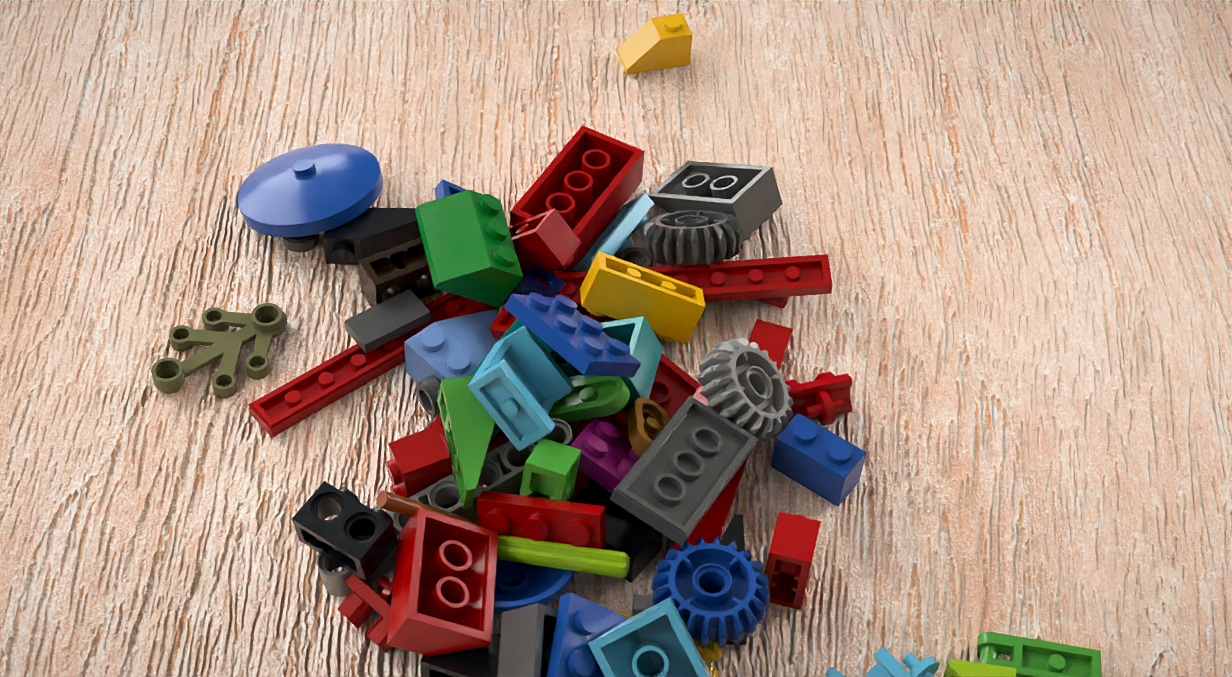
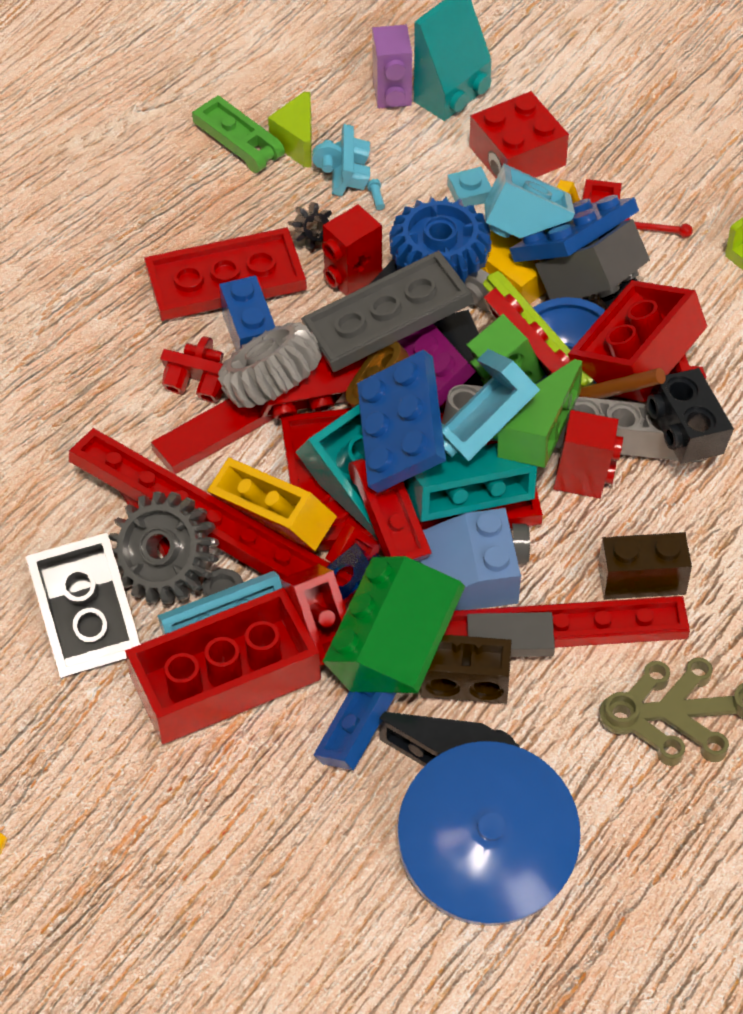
camera: 140 degrees left, 5 degrees up
(315, 425) = (644, 565): none -> dark brown brick
(860, 587) = (309, 216): none -> black gear
(888, 504) = (190, 278): none -> red plate

